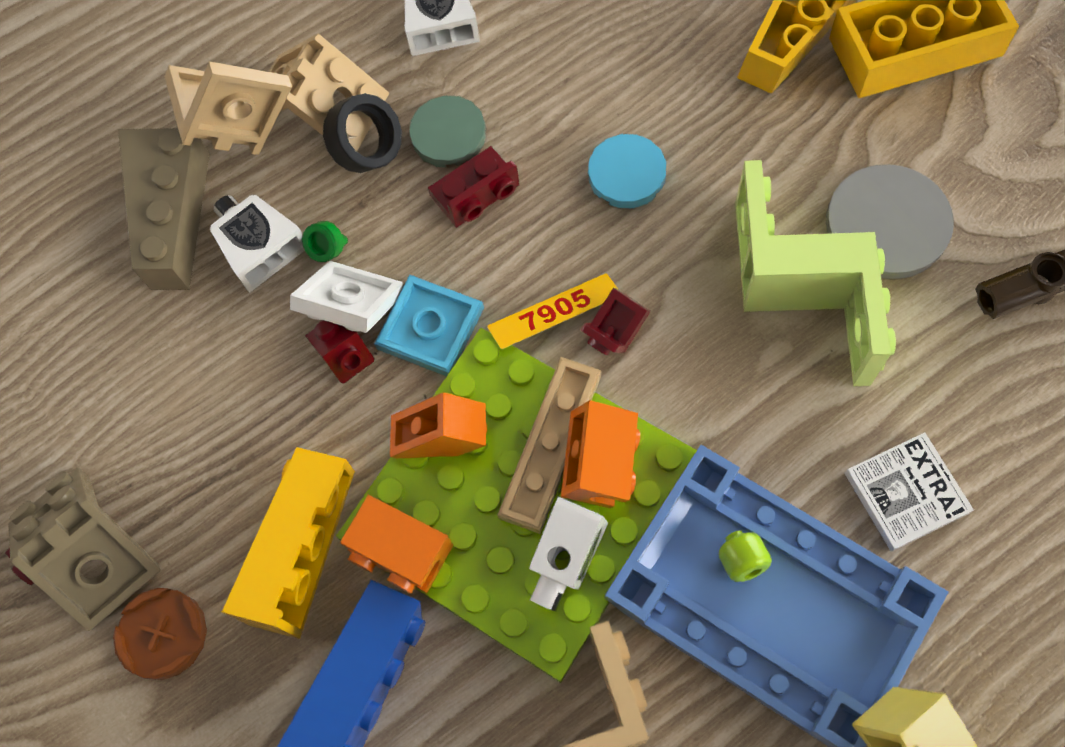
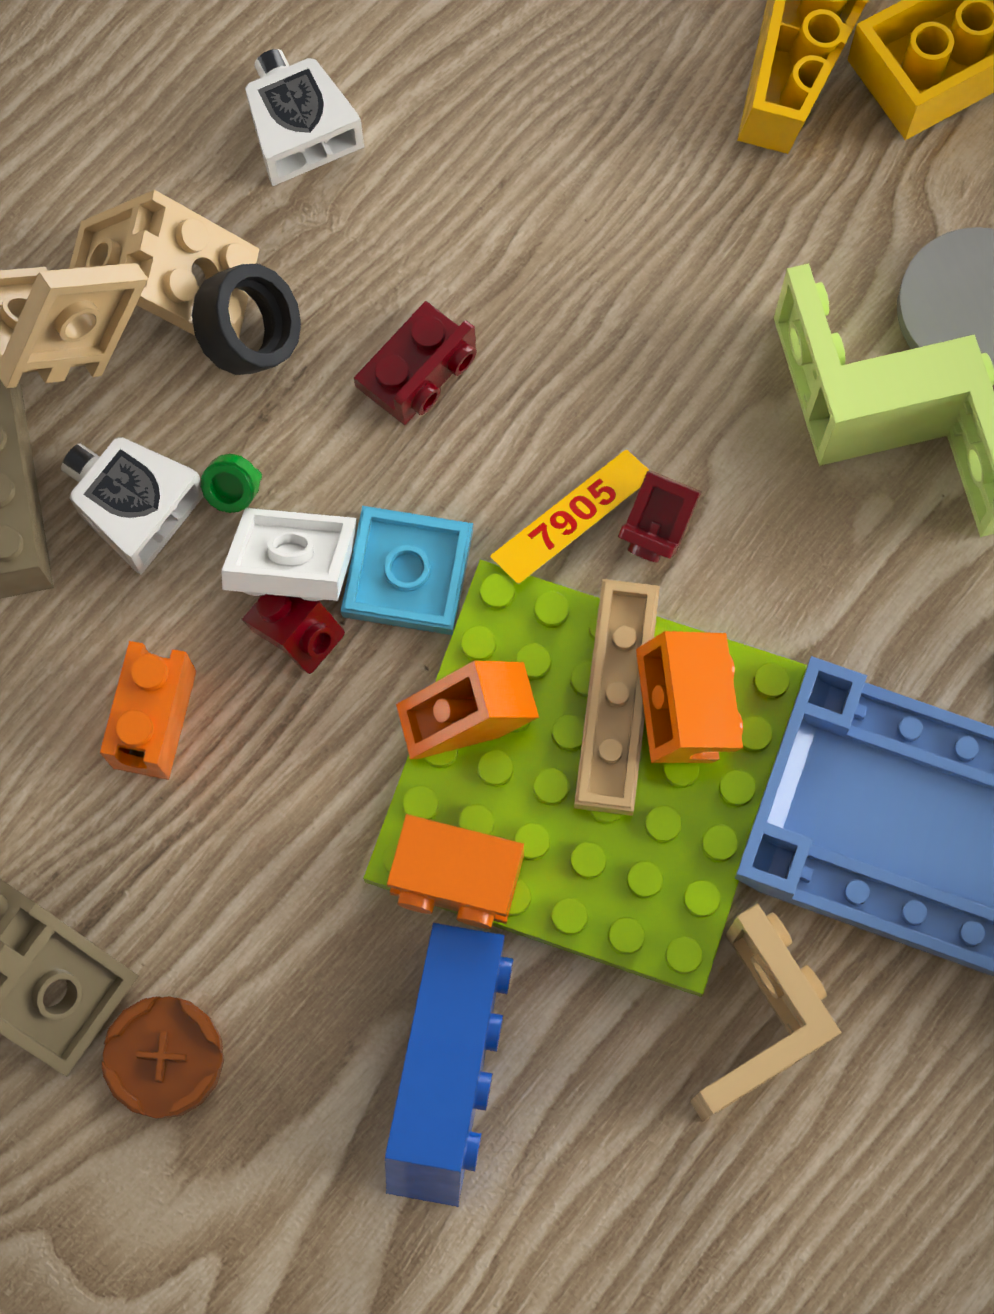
camera: 20 degrees left, 5 degrees up
(220, 384) = (148, 711): none -> orange brick
(291, 545) = (312, 898): yellow wedge -> none
(447, 131) = (357, 289): sand green tile -> none
(567, 529) = (685, 802): white torso -> none
(627, 170) = (620, 301): medium azure tile -> none
(744, 556) = (897, 786): lime piece -> none

